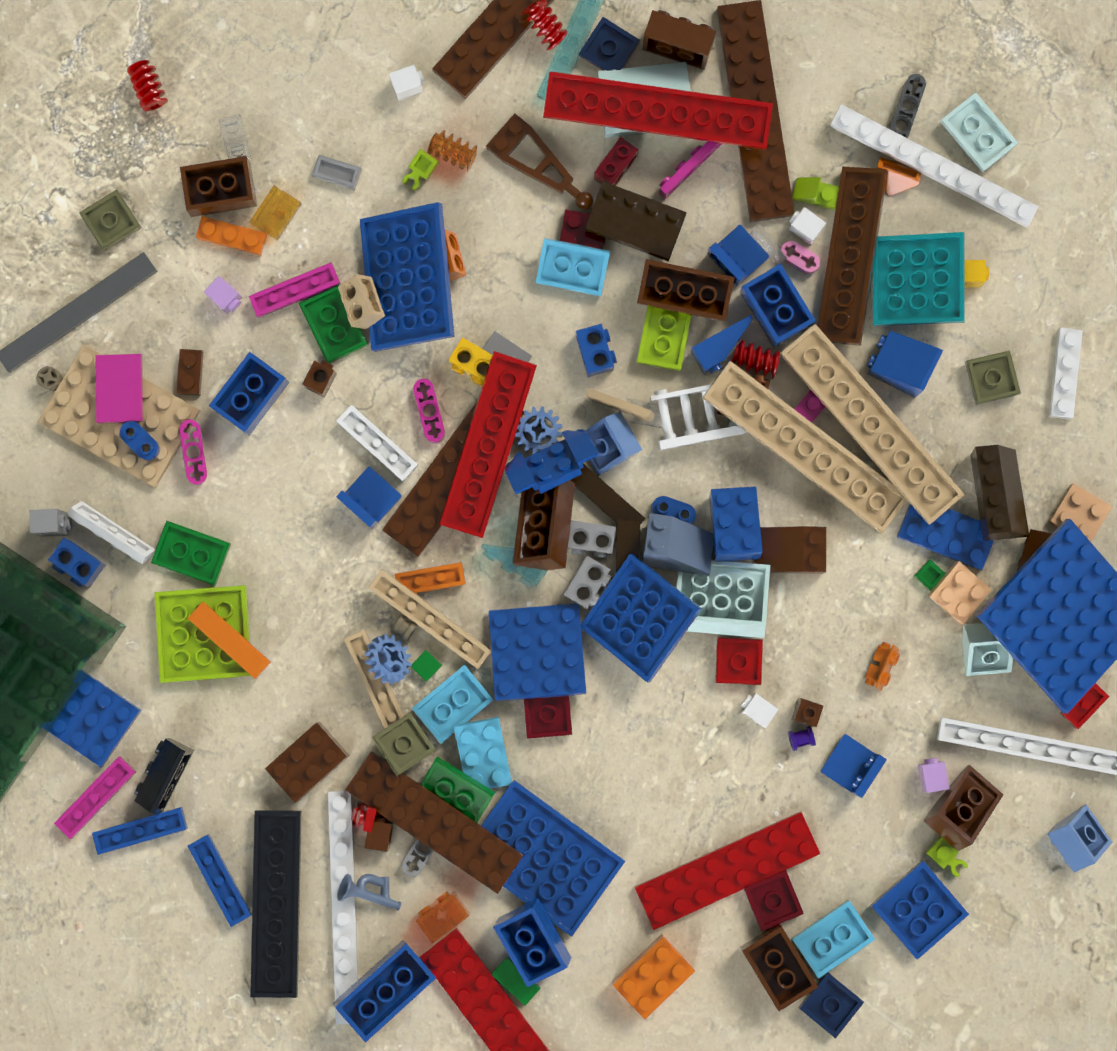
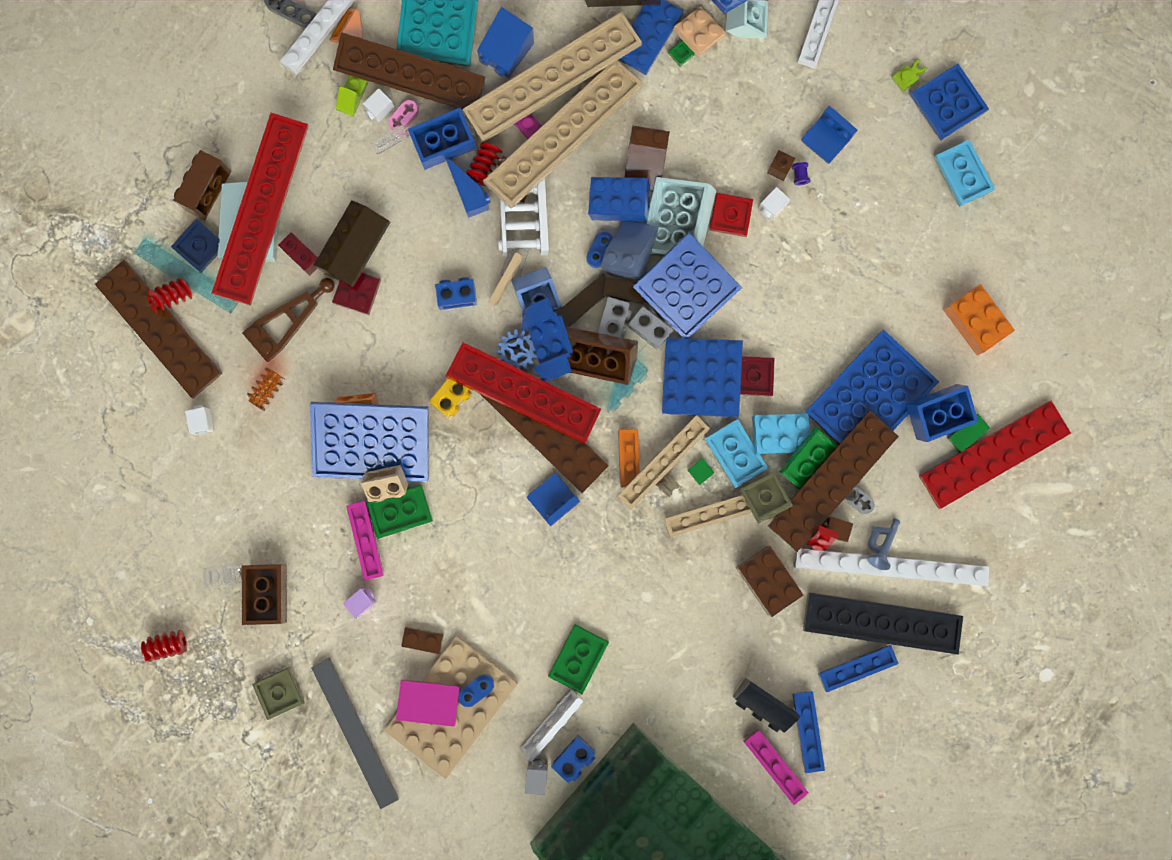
camera: 85 degrees left, 0 degrees up
(45, 376) = (408, 767): dark tan wheel -> none
(95, 720) = (711, 758): blue plate -> none
(183, 435) = (506, 650): dark pink beam -> none
(183, 648) = (649, 657): lime plate -> none
(229, 640) = (658, 634): orange tile -> none
(231, 236) = (309, 589): orange plate -> none
(249, 393) = (449, 590): blue brick -> none
(275, 212) = (295, 548): clear yellow plate -> none
(319, 388) = (452, 532): reddish brown brick -> none
(336, 172) = (268, 491): light grey tile -> none
(377, 443) = (507, 487): white plate -> none
(384, 991) = (968, 541): blue brick -> none
(388, 657) = (692, 501): medium blue gear -> none
(419, 396) = (472, 447): dark pink beam -> none
(422, 166) = (275, 416): lime plate -> none
(437, 928) = (918, 491): clear orange brick -> none
(502, 345) = (439, 372): light grey tile -> none
(572, 267) = (382, 302): medium azure plate -> none
(664, 338) = (451, 235): lime plate -> none
(685, 169) = (313, 197): dark pink plate -> none
(685, 290) = (417, 211): reddish brown slope -> none
(727, 870) = (899, 250): red plate -> none
(738, 254) = (394, 165): blue bracket -> none
(752, 79) = (244, 133): reddish brown plate -> none
(773, 900) = (928, 215): dark red plate -> none
(779, 967) = (983, 218): reddish brown brick -> none
(831, 1005) = (1016, 182): dark blue plate -> none
(887, 658) = (756, 104): orange hinge -> none
(933, 775) = (844, 74): lavender brick -> none
(964, 808) = (874, 54): reddish brown slope -> none

